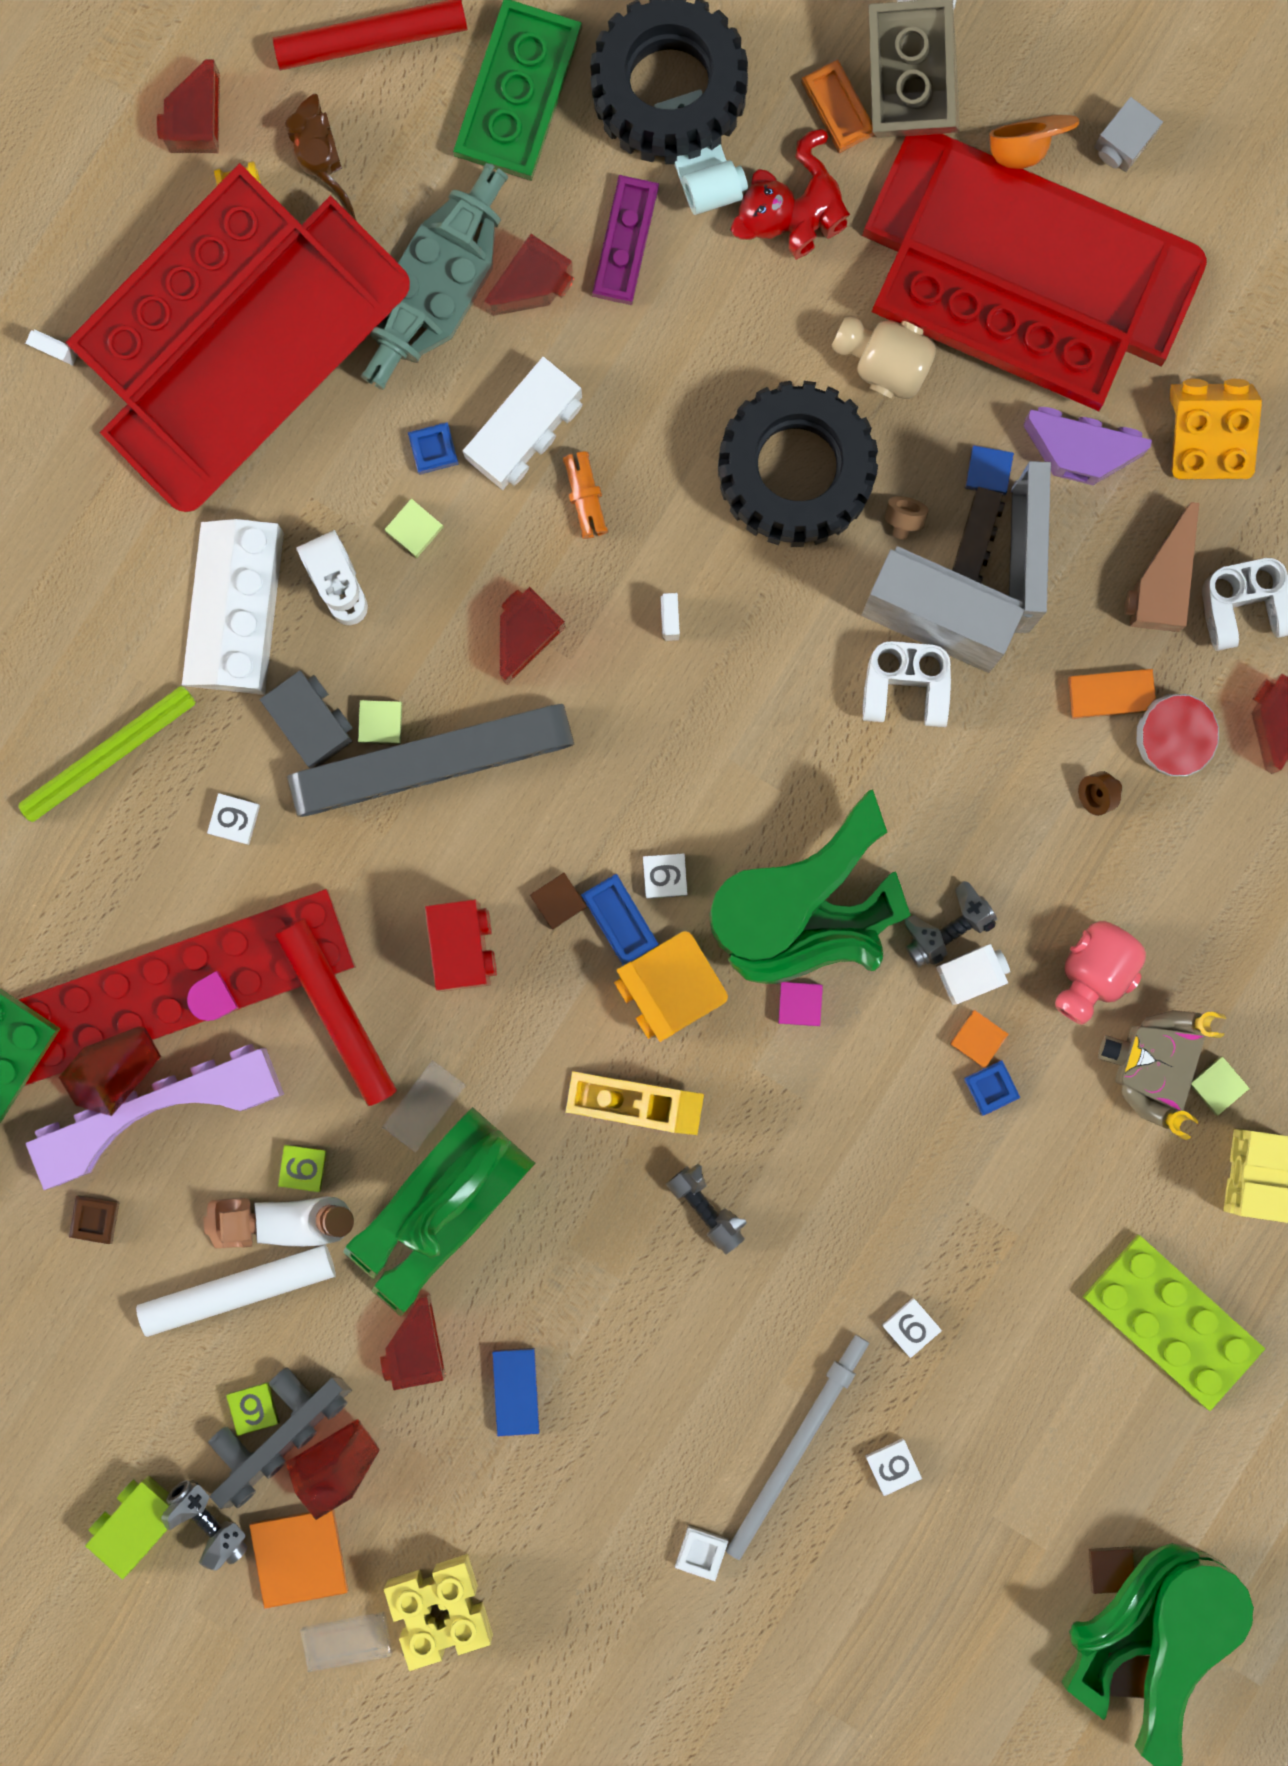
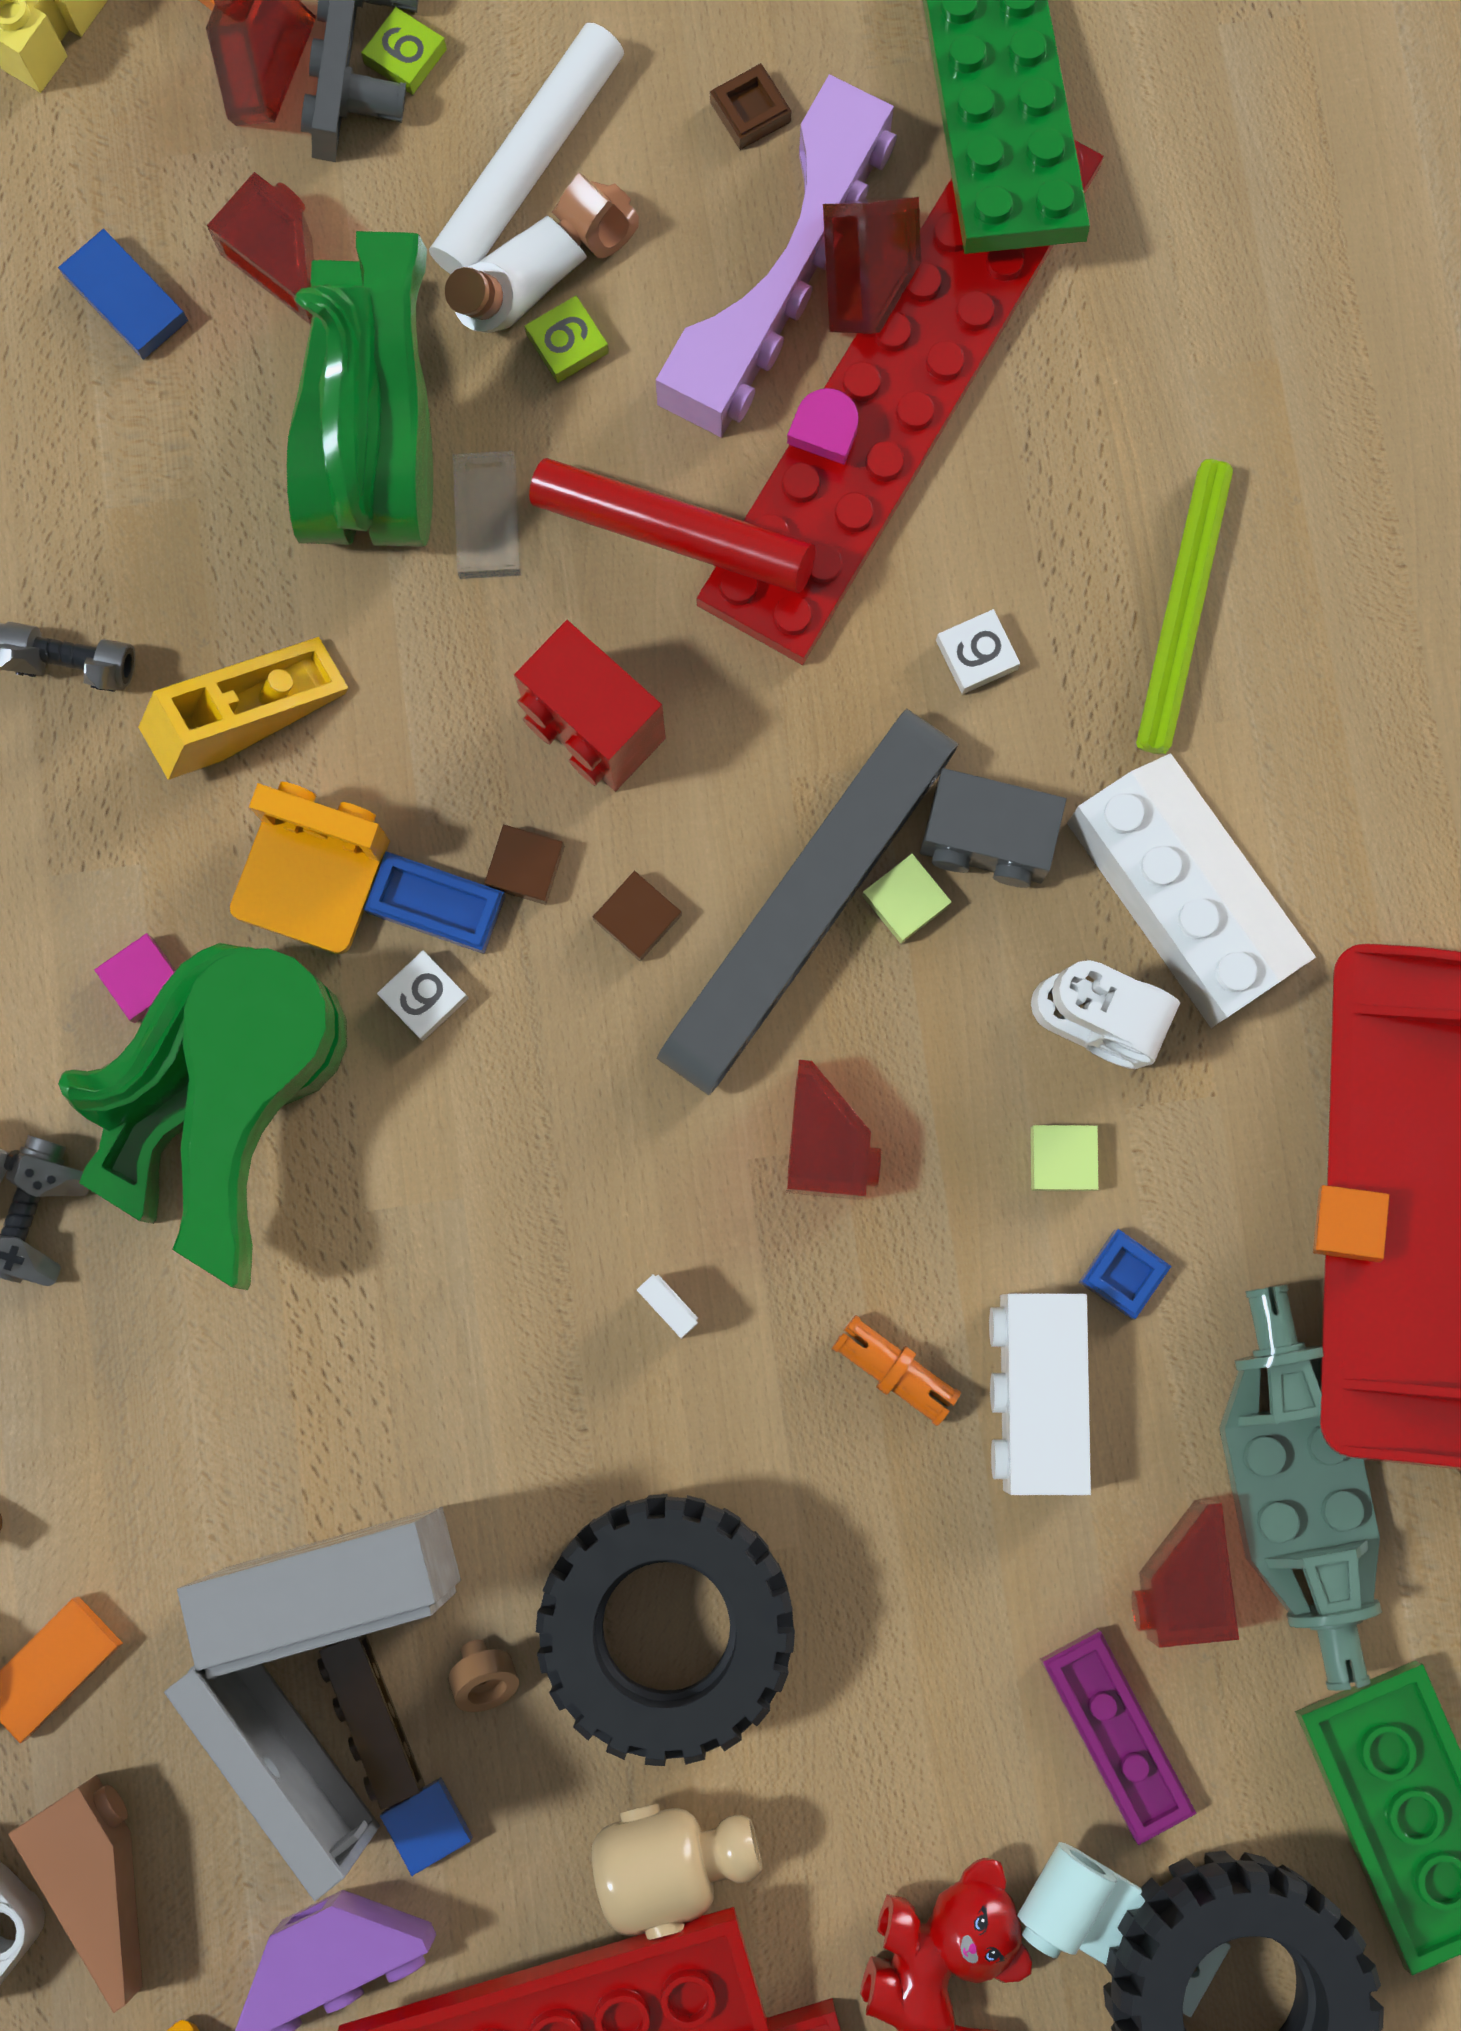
camera: 140 degrees right, 5 degrees down
(306, 376) = (1351, 1223): none -> orange tile
(523, 826) = (637, 916): none -> reddish brown tile
(908, 674) = (323, 1483): white piece -> none

